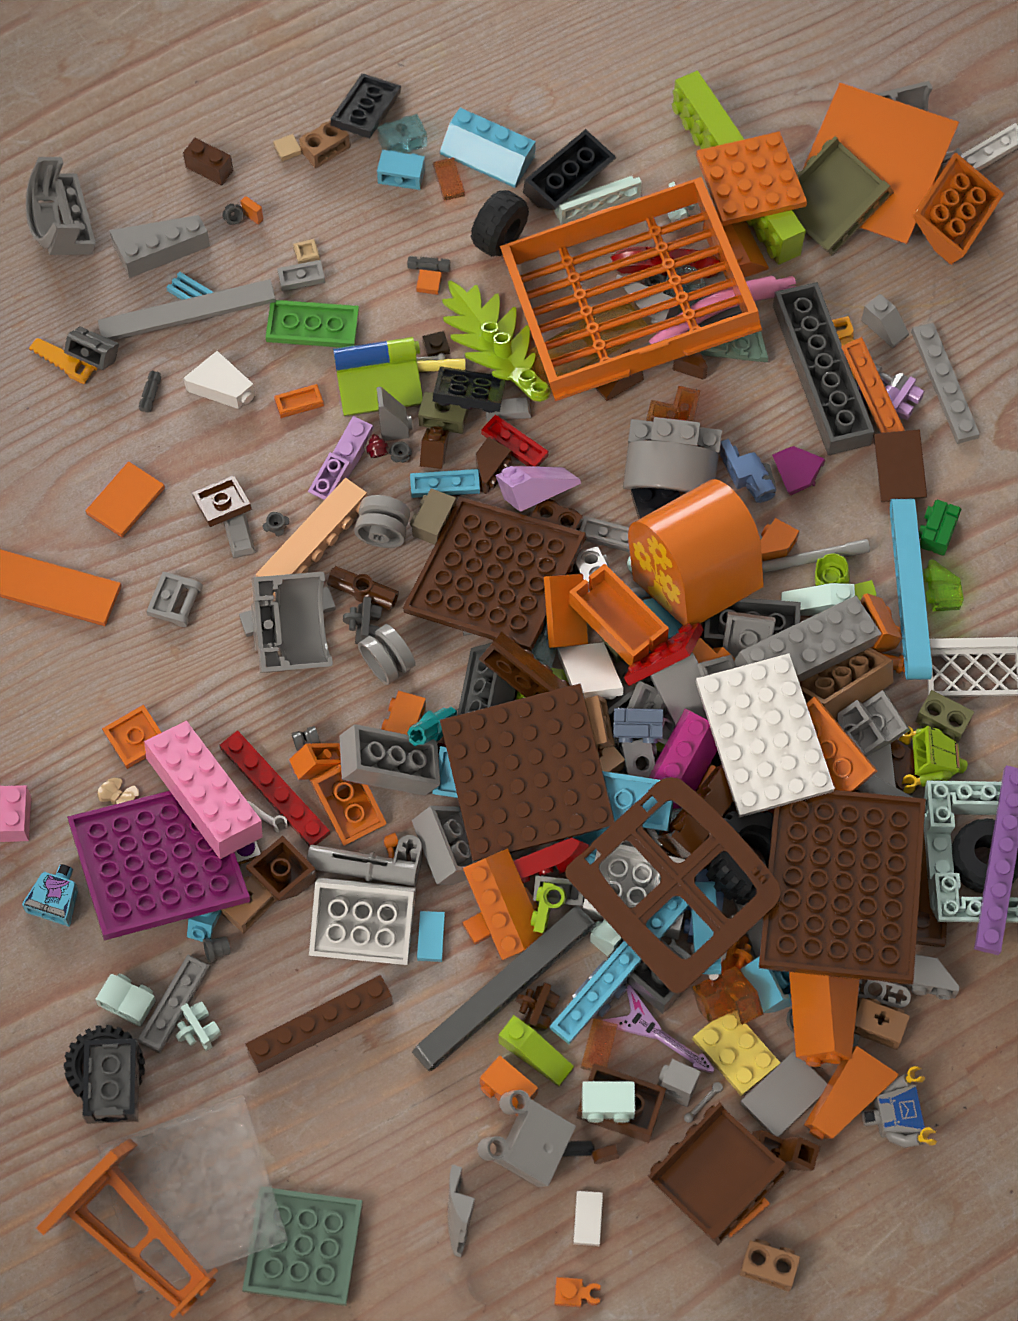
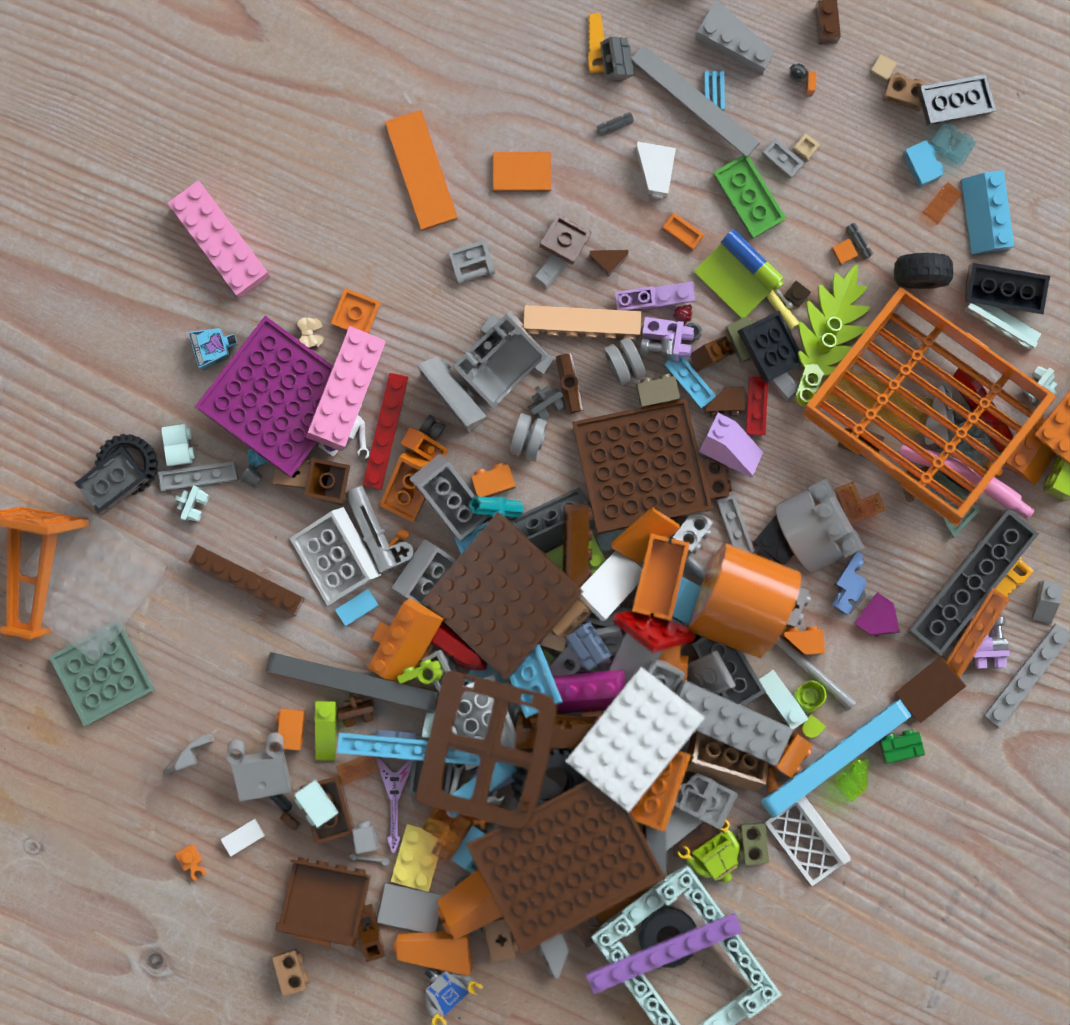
camera: 55 degrees right, 20 degrees up
(271, 479) = (608, 260): none -> reddish brown slope
(276, 517) = (576, 292): dark grey plate -> none
(288, 699) = (452, 393): none -> light grey slope
(392, 417) = (711, 309): light grey slope -> none
(392, 467) = (671, 337): none -> lavender hips

